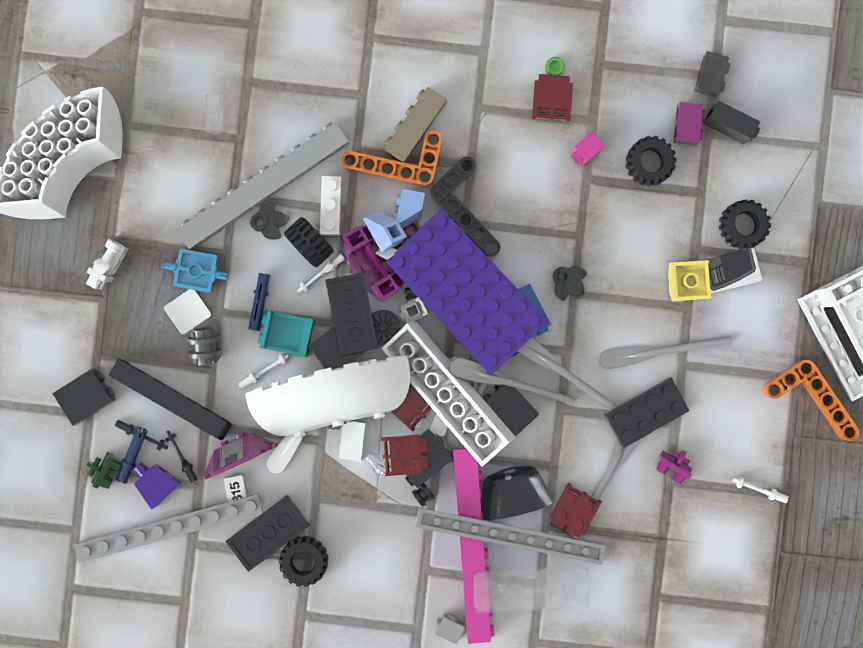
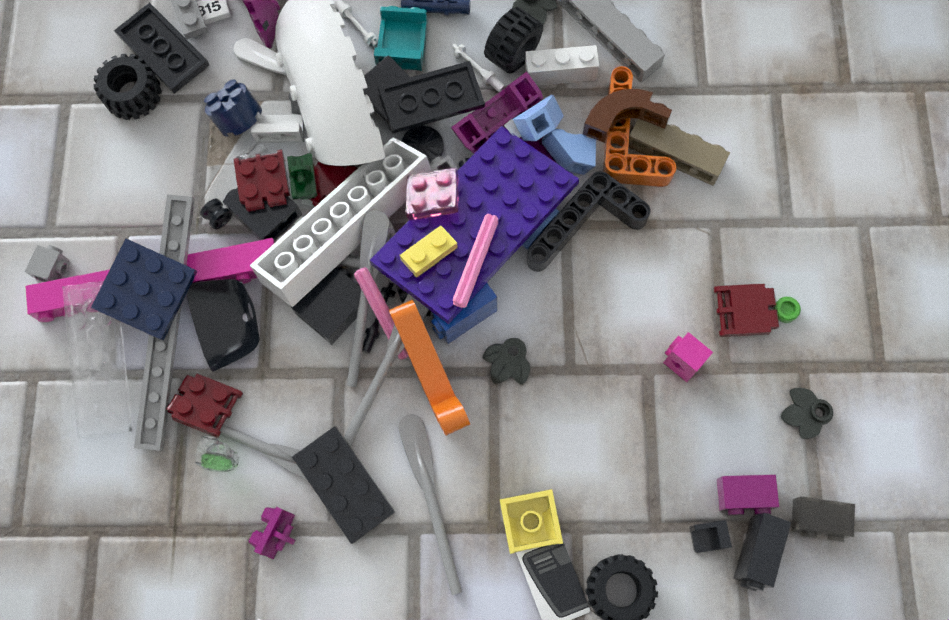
camera: 85 degrees right, 15 degrees down
(338, 475) = (232, 108): none -> dark blue brick
(384, 174) = (621, 106): none -> reddish brown arch
(406, 423) = (302, 176): none -> dark green hips
(443, 322) = (432, 194): none -> clear pink plate
(488, 548) = (144, 289): none -> dark blue plate
(492, 329) = (428, 251): none -> light yellow plate
(505, 295) = (475, 261): none -> bright pink axle
(519, 373) = (377, 303): none -> bright pink axle
(532, 380) = (372, 332): none -> black piece
(577, 339) = (428, 368): none -> orange beam
(614, 504) = (216, 455): none -> clear rock
(634, 71) = (803, 414): none -> pearl dark grey plate
(662, 149) = (704, 434): black tyre -> none
(714, 155) = (710, 536): none -> black panel

